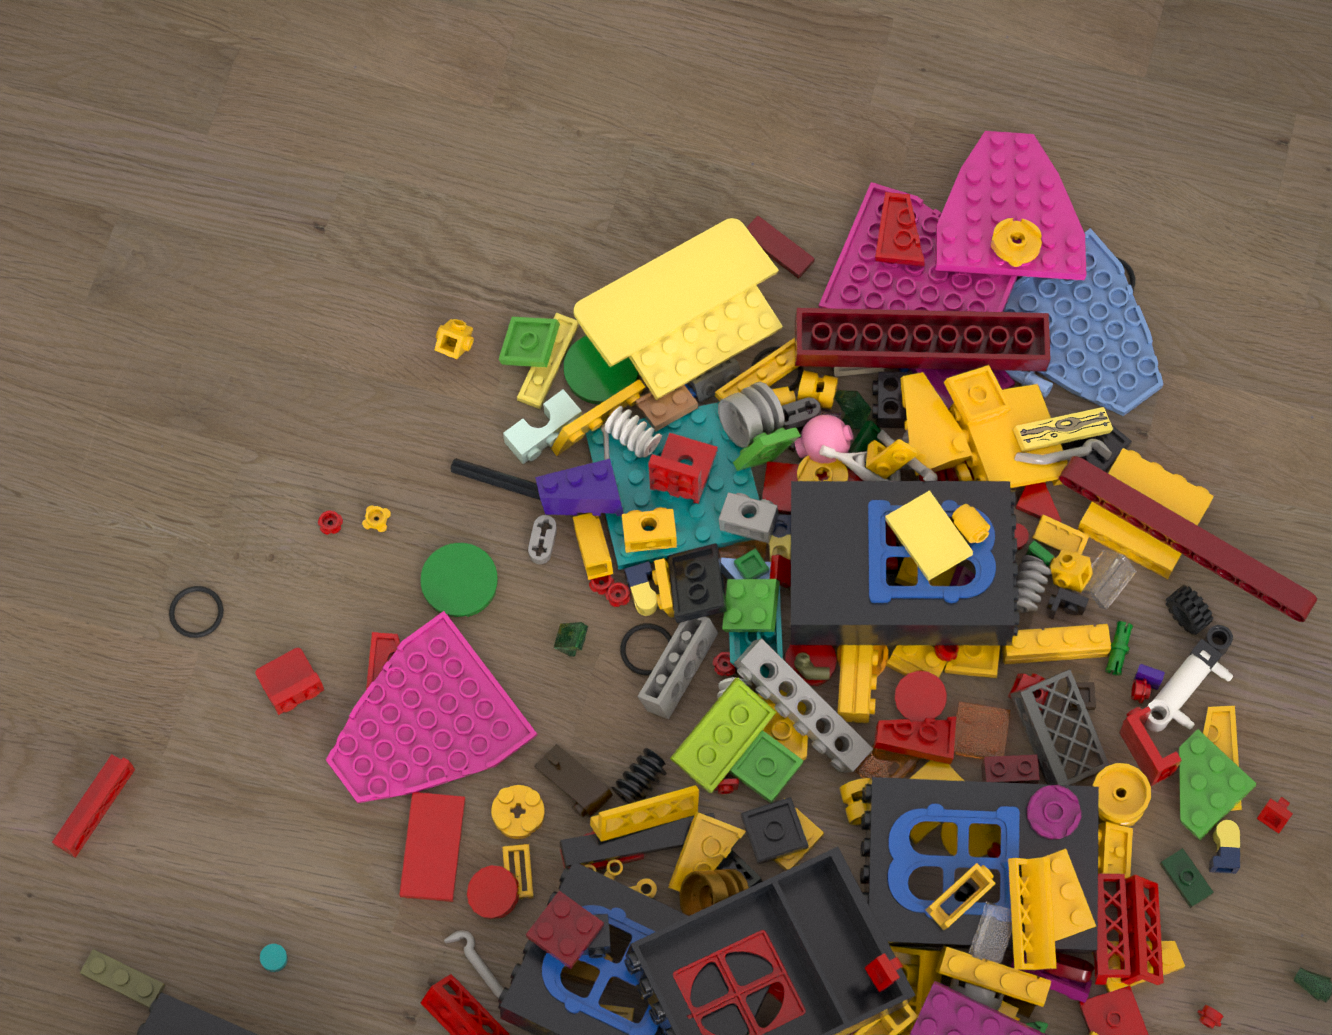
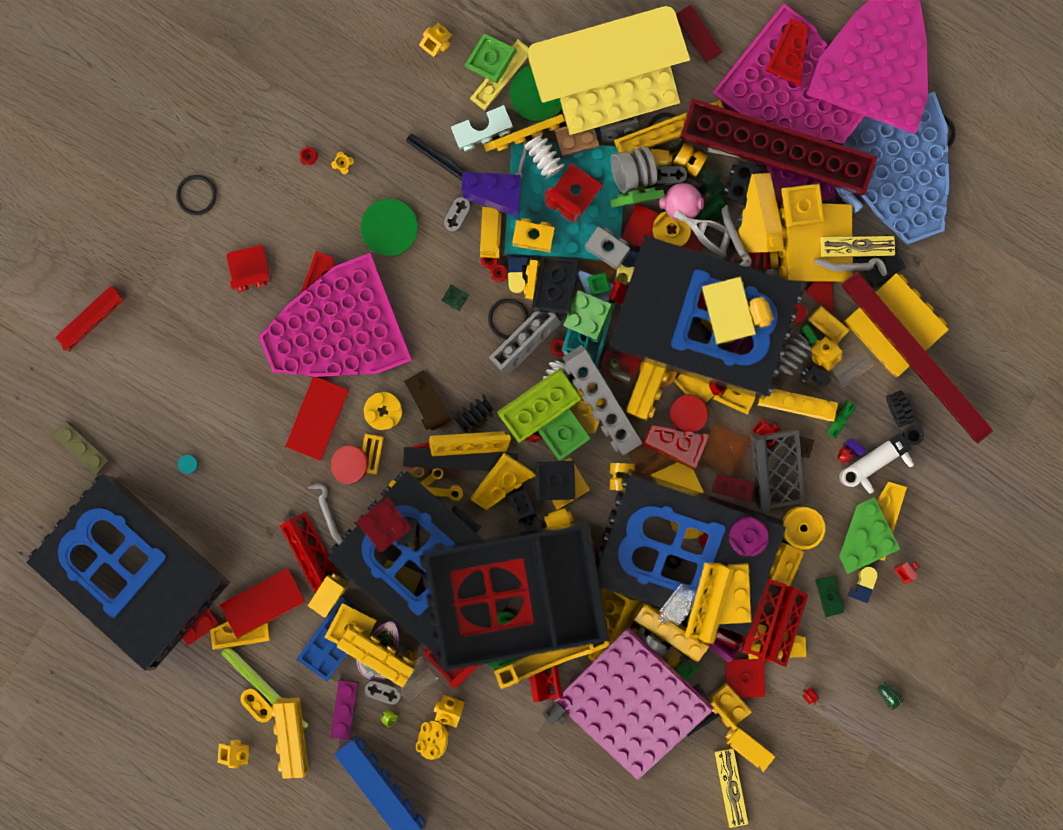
camera: 20 degrees right, 20 degrees up
(707, 888) = (498, 517): pearl gold wheel -> none
(883, 971) = (591, 621): red tile -> none
(887, 460) = (719, 235): yellow bracket -> none
(980, 876) = (651, 590): yellow window -> none
(1015, 253) = (865, 99): yellow plate -> none
(1144, 750) = (831, 500): red panel -> none

